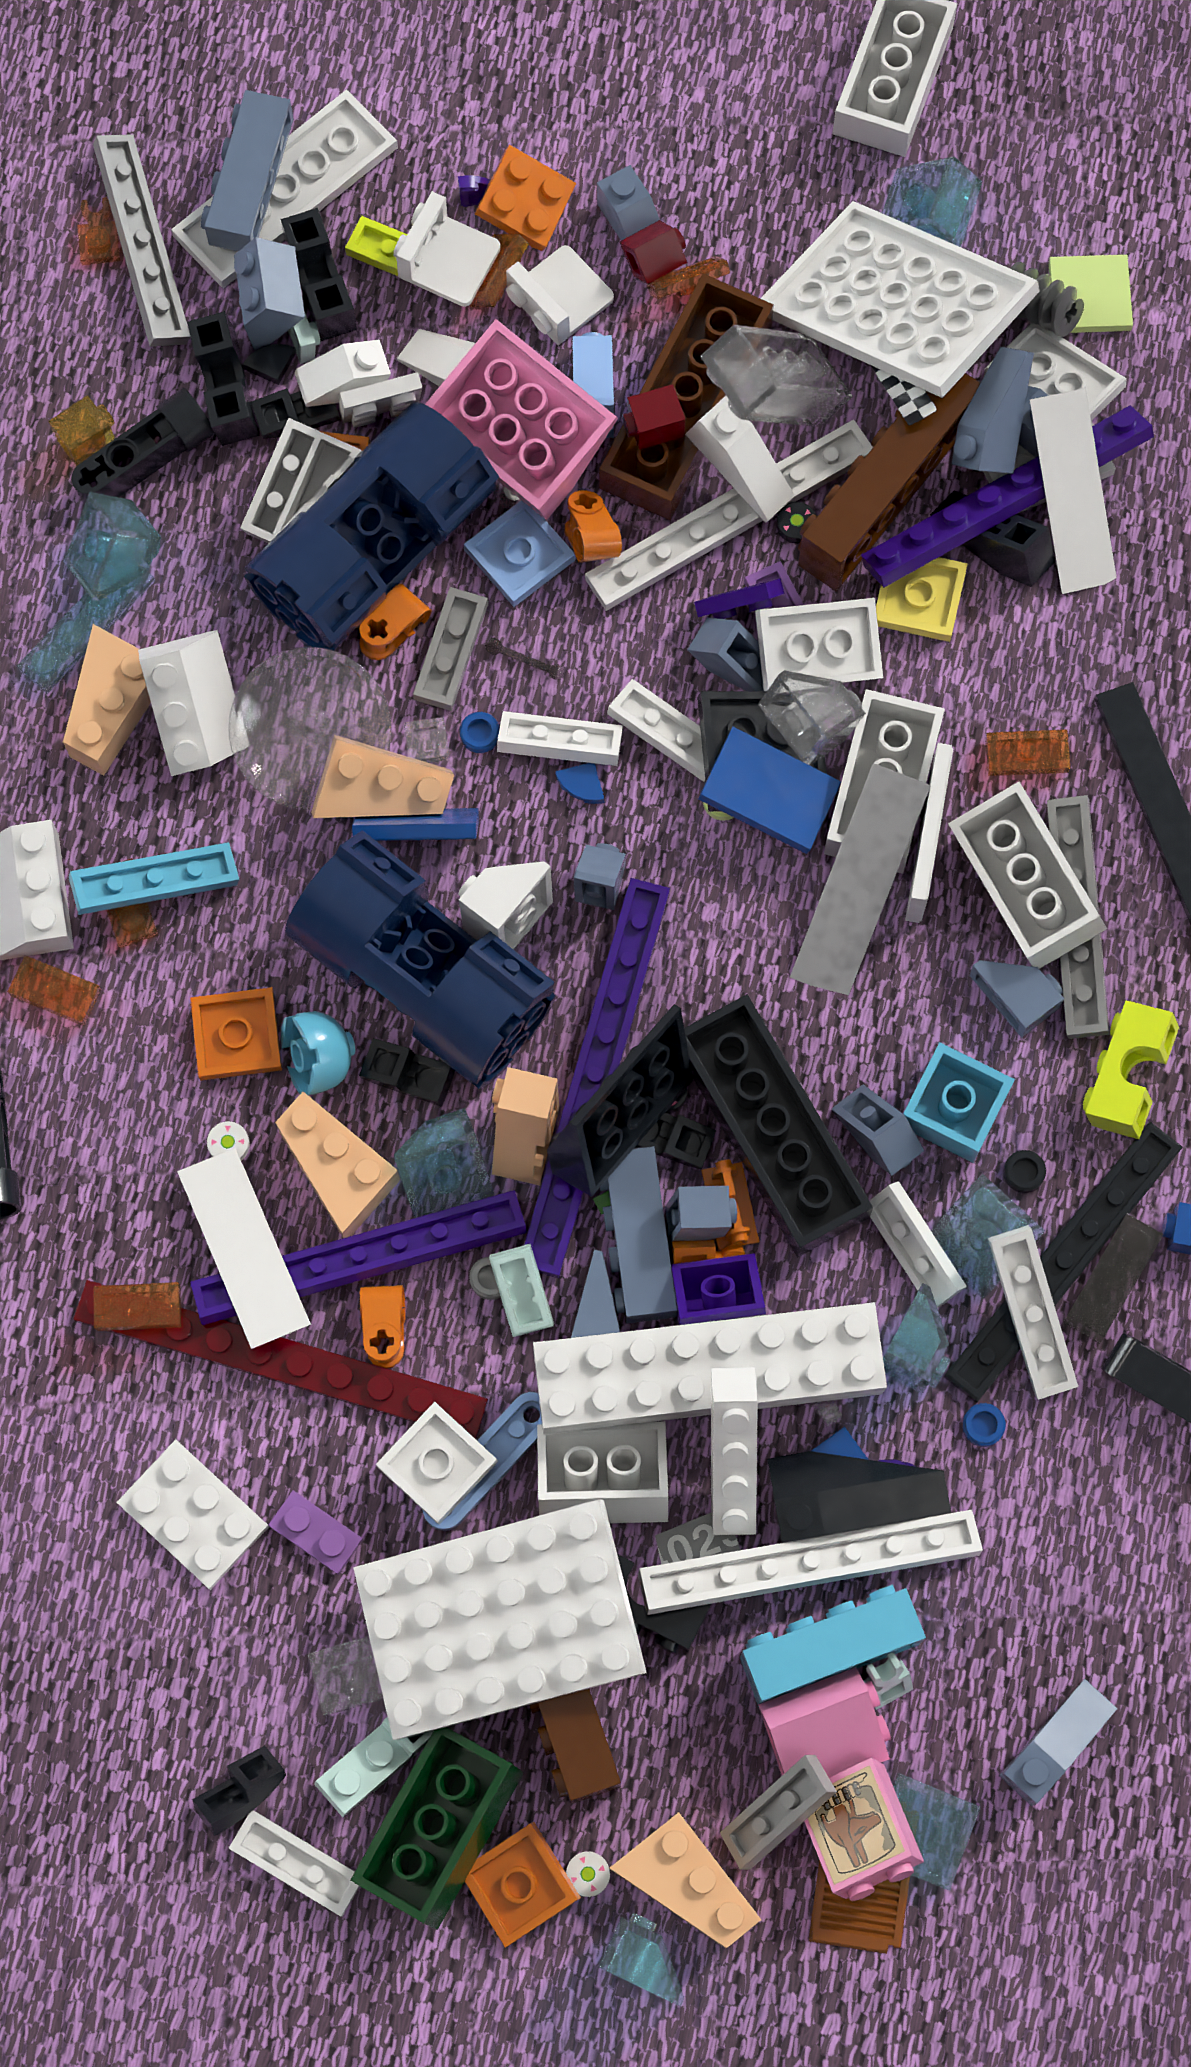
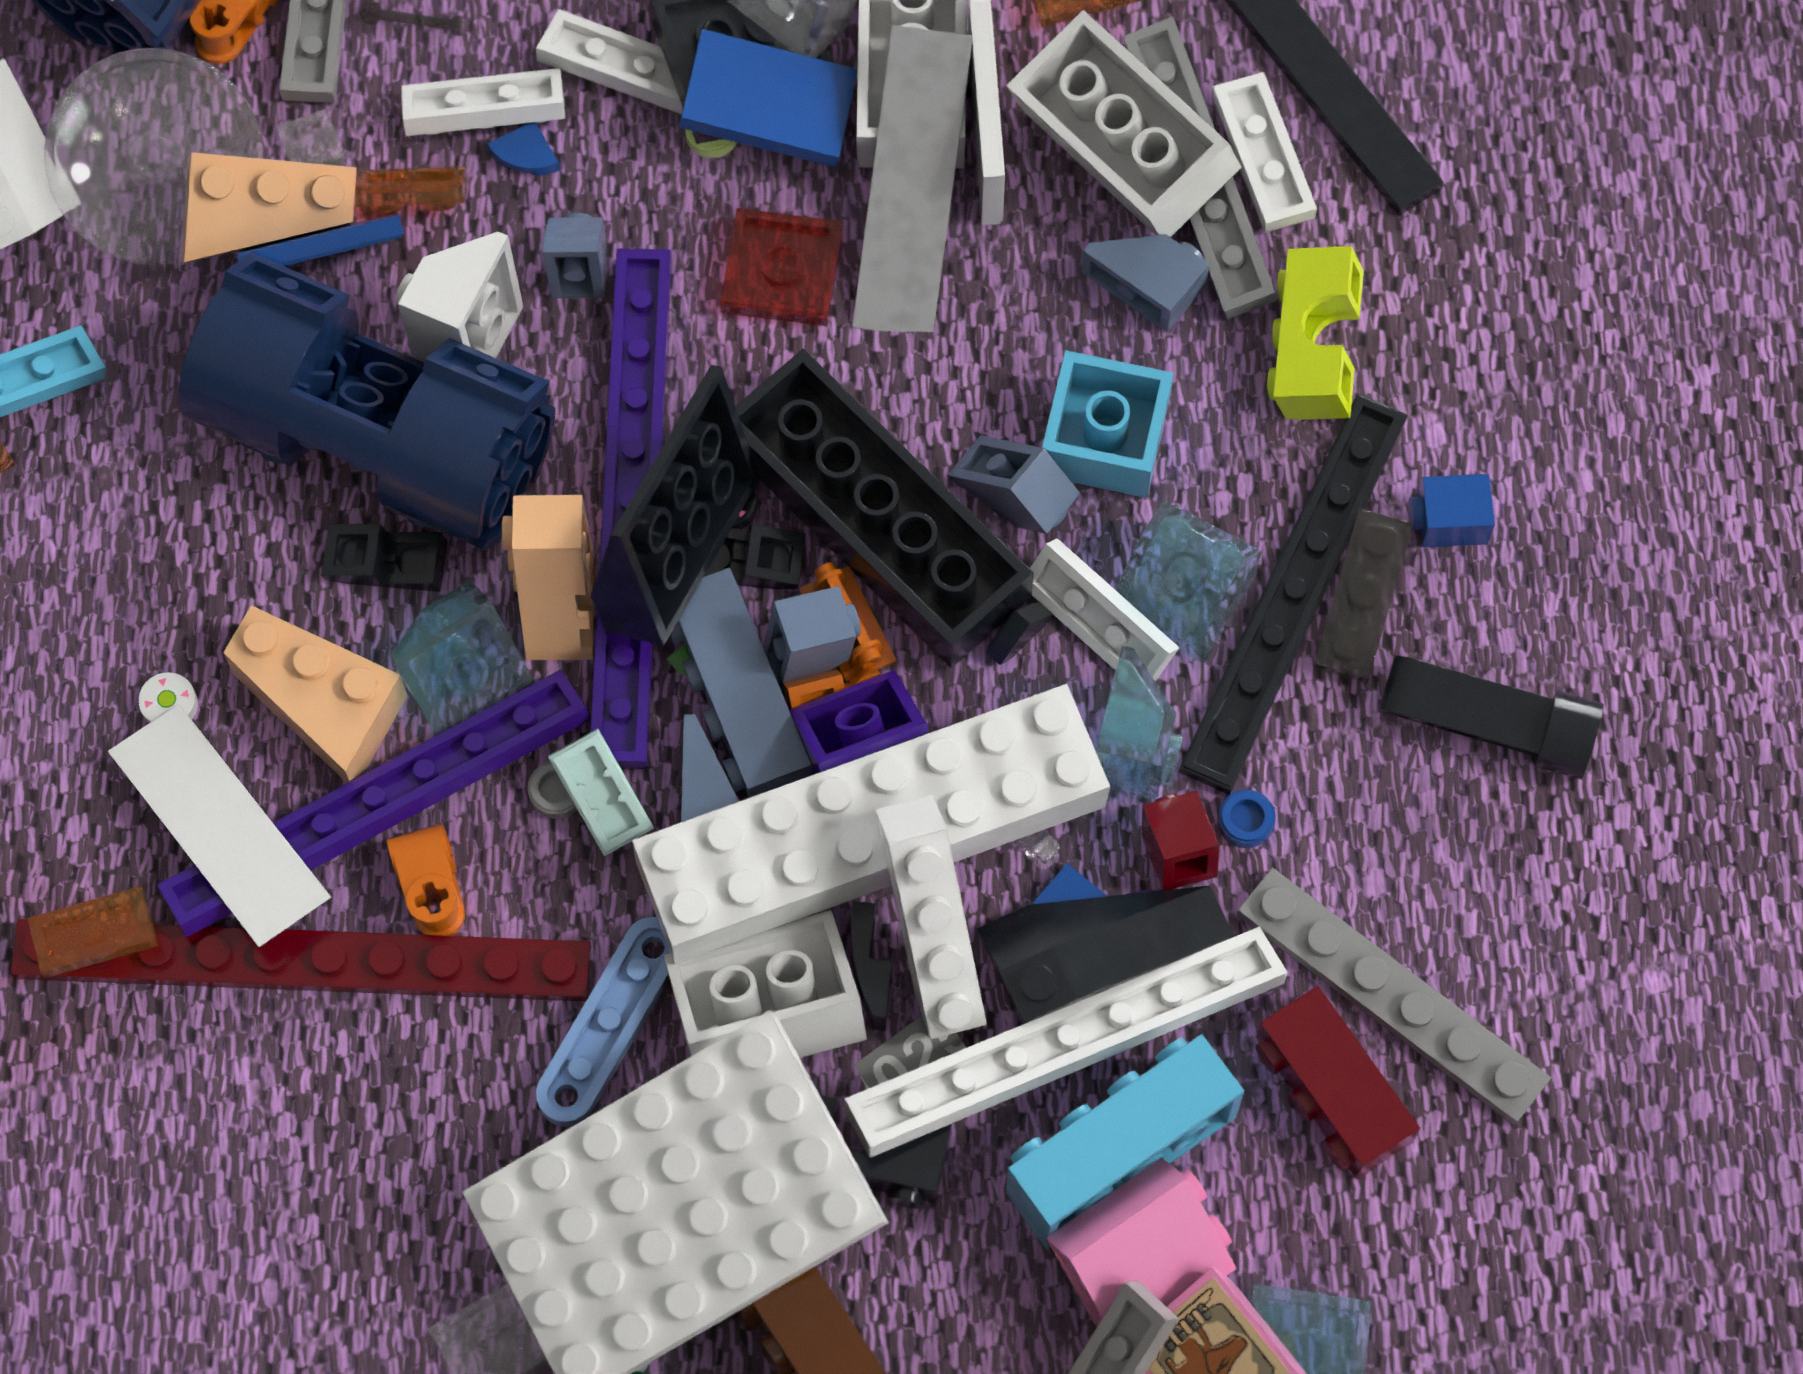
camera: 15 degrees left, 5 degrees down
(193, 1514) = (231, 1188): white plate -> none
(236, 1034) = (146, 561): orange plate -> none
(315, 1532) = (402, 1170): medium lavender plate -> none
(318, 1051) = (257, 547): medium azure cylinder -> none
(436, 1463) = (542, 1035): white plate -> none
(479, 732) = (377, 120): blue tile -> none
(492, 792) = (391, 188): none -> clear orange plate
(683, 1478) = (871, 975): none -> black slope
(748, 919) = (781, 267): none -> clear red plate
(853, 1242) = (1018, 631): none -> black tile
(890, 1679) = (1212, 1163): light aqua plate -> none
(930, 1431) = (1180, 840): none -> dark red brick
(996, 1640) = (1335, 1083): none -> dark red brick
(1024, 1171) = (1215, 492): black tile -> none
(1033, 1312) = (1273, 656): white plate -> none
(1056, 1585) = (1394, 996): none -> light grey plate
(1058, 1743) = (1449, 1197): slope -> none
(1129, 916) = (1264, 152): none -> white plate

